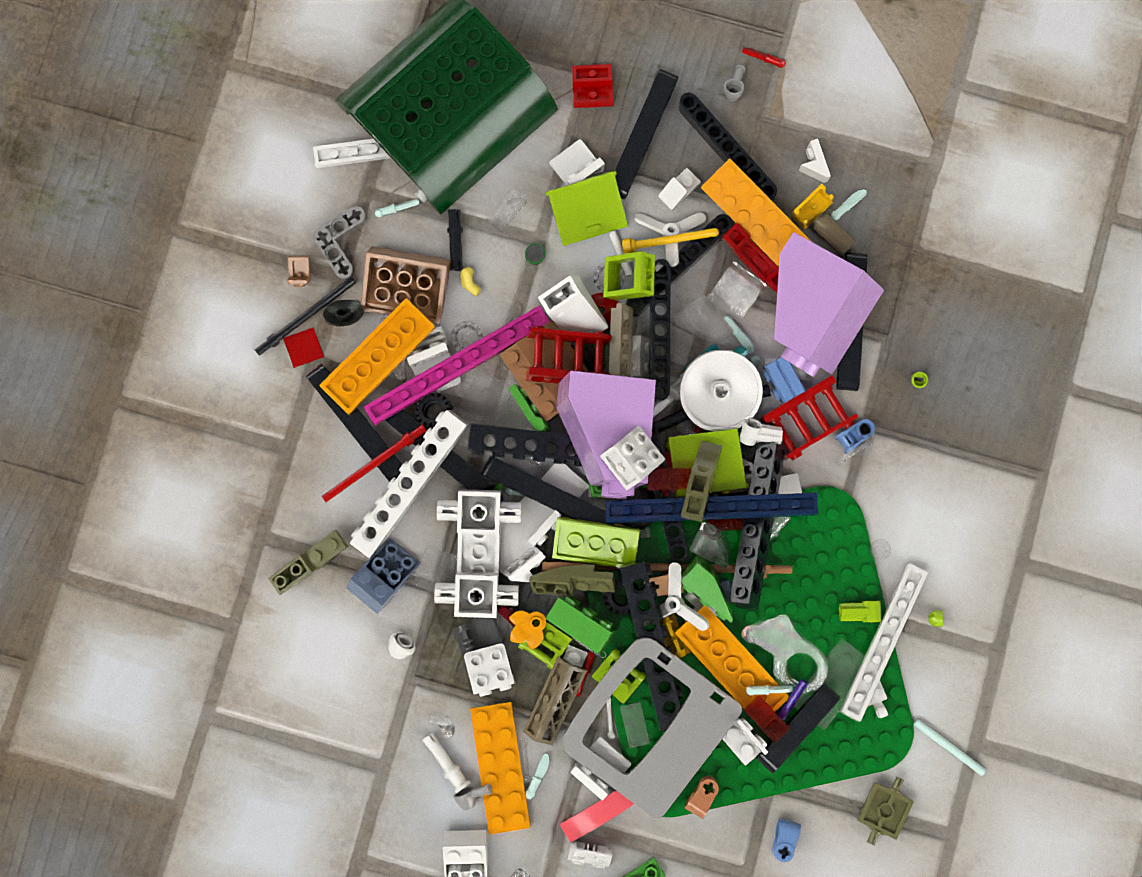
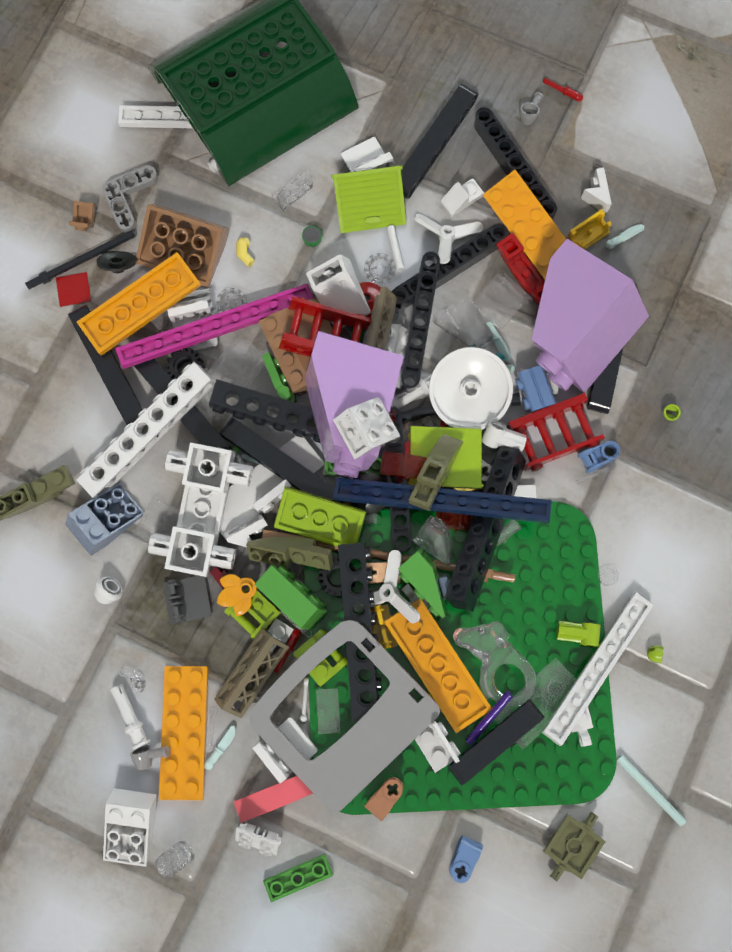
camera: 10 degrees right, 5 degrees down
(393, 208) = (183, 173): light aqua piece -> none
(407, 440) = (152, 388): red bar -> none
(455, 239) = (239, 202): black pin -> none
(489, 669) = (190, 629): white bracket -> none
(592, 86) = (394, 91): red slope -> none
(631, 245) = (406, 241): yellow piece -> none
(642, 284) = (409, 274): lime window -> none
(758, 690) = (468, 696): light aqua piece -> none
(767, 718) = (464, 726): clear red slope -> none
(833, 233) = (604, 253): dark tan brick -> none

